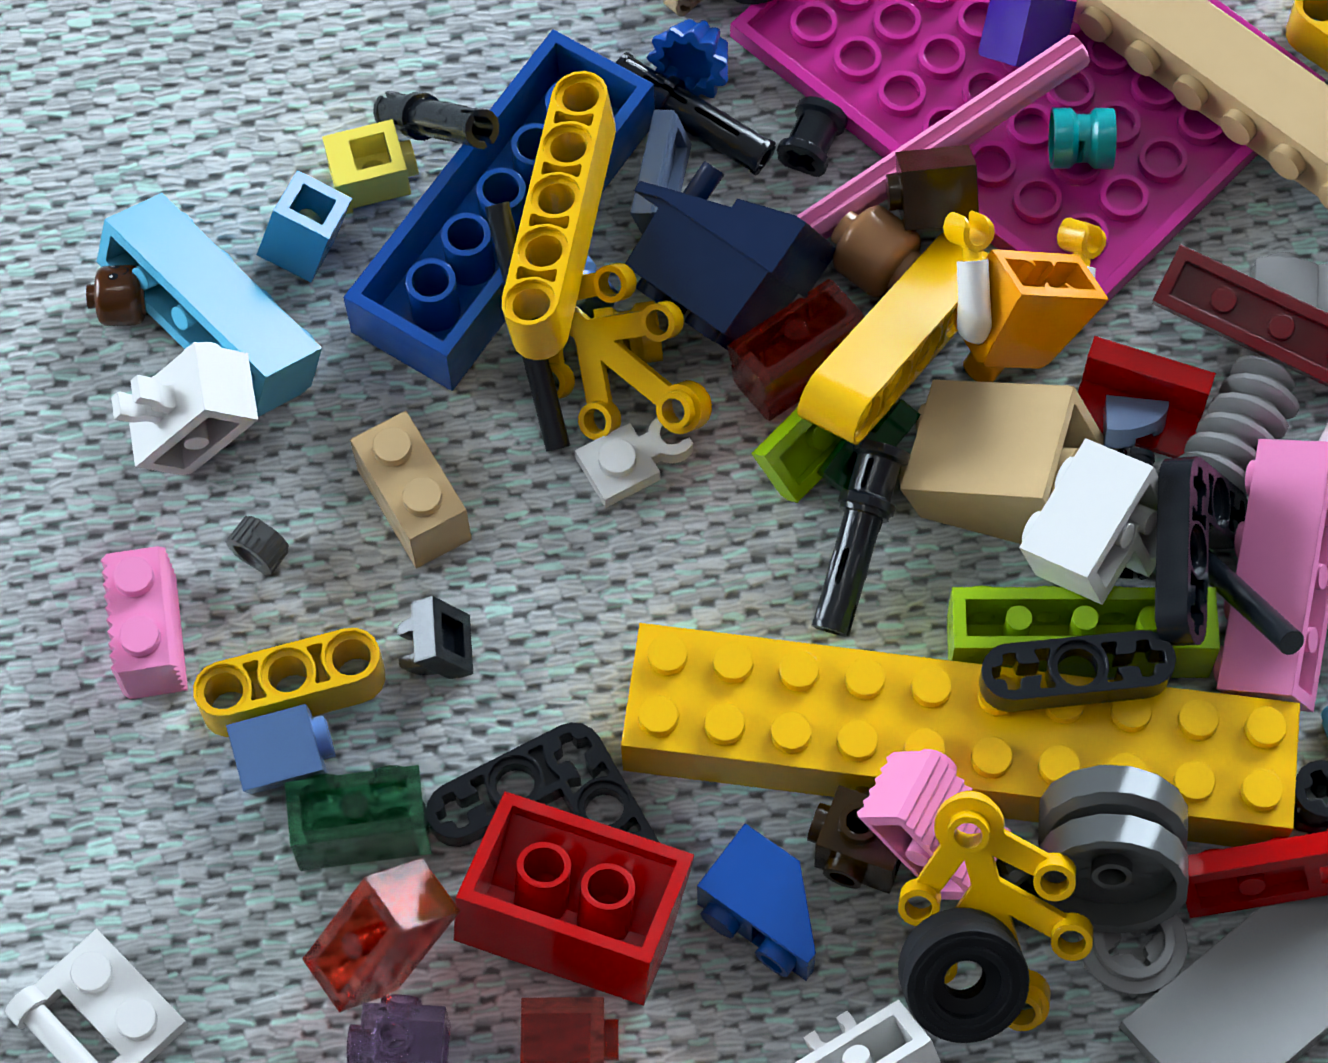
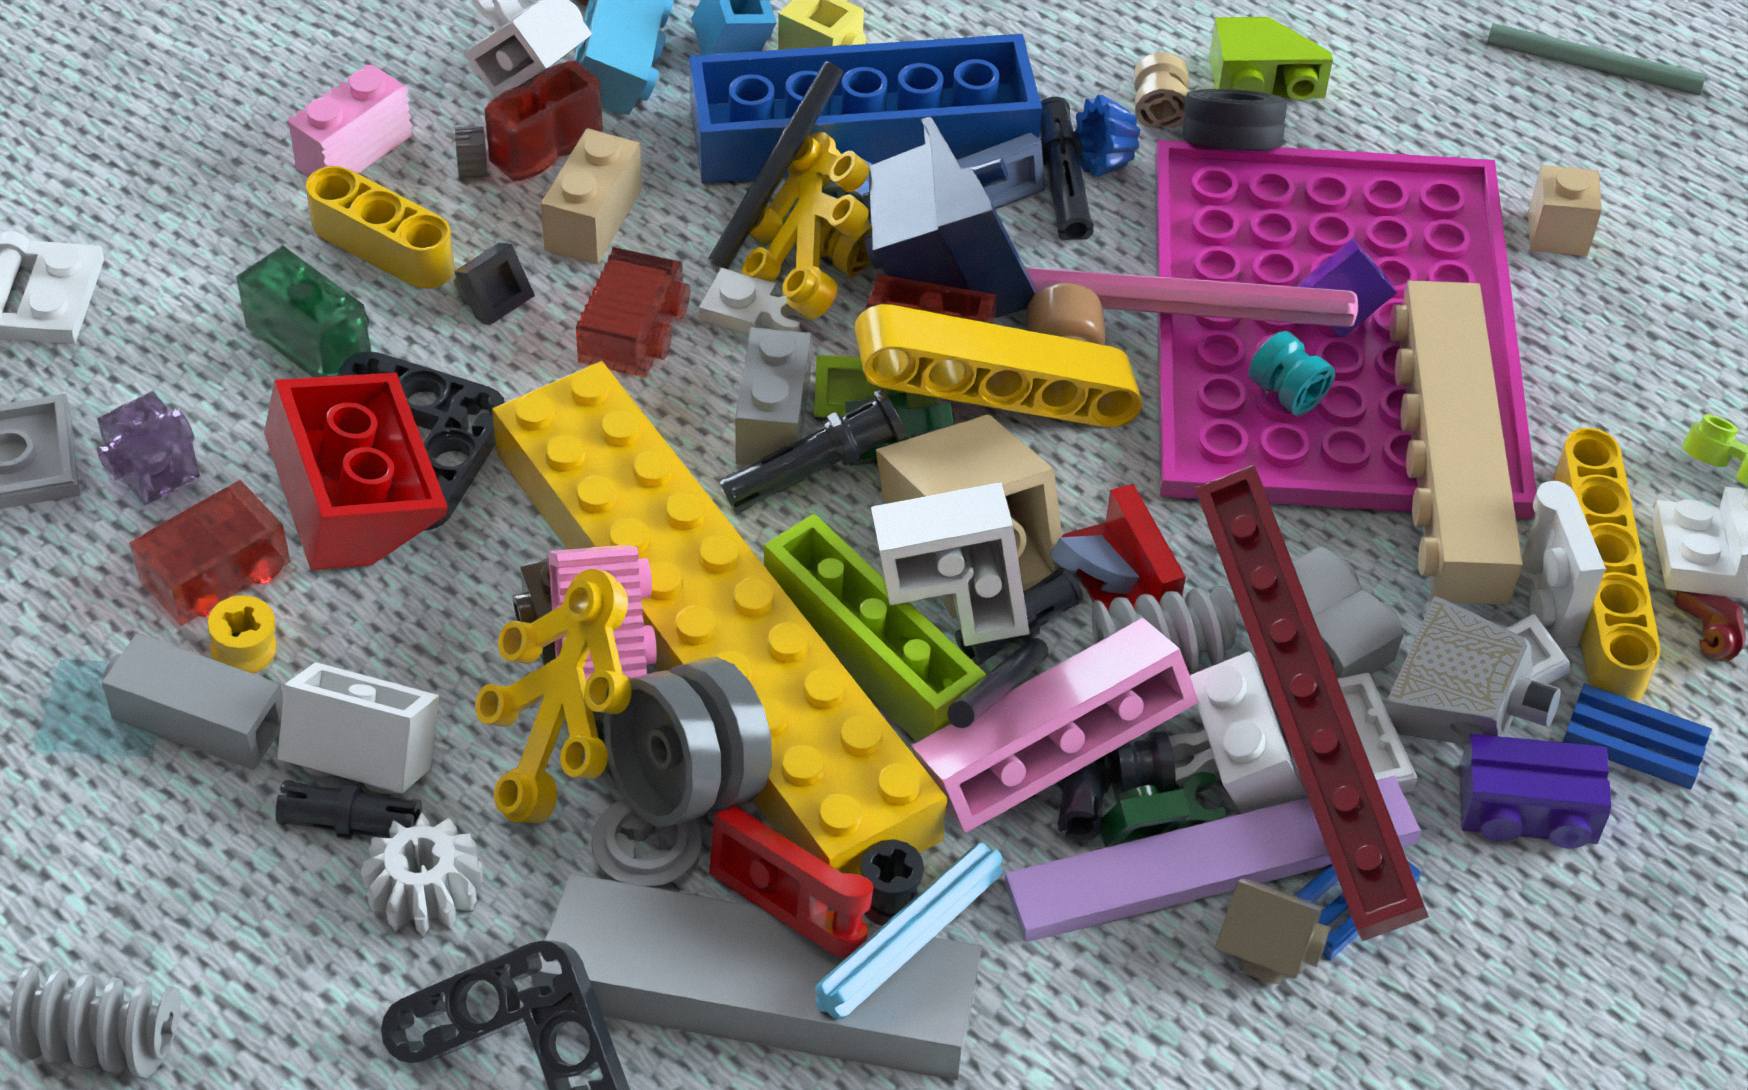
camera: 45 degrees right, 15 degrees down
(280, 748) = (311, 227): medium blue brick -> none
(290, 462) = (542, 120): none -> clear red brick
(380, 934) = (219, 369): clear red brick -> none
(424, 117) = (877, 10): black pin -> none
(559, 216) = (861, 103): yellow beam -> none
(570, 554) = (632, 312): none -> clear red brick
(762, 897) = (460, 584): blue slope -> none
(767, 519) = (772, 393): none -> light grey brick
(812, 136) = (1122, 240): black bush -> none
(933, 185) = (1143, 309): dark brown brick -> none
(971, 1012) = (451, 703): black tyre -> none
(1022, 304) = (1102, 415): light orange torso -> none
(1127, 684) = (822, 648): black beam -> none
(1194, 513) = (1010, 608): black beam -> none

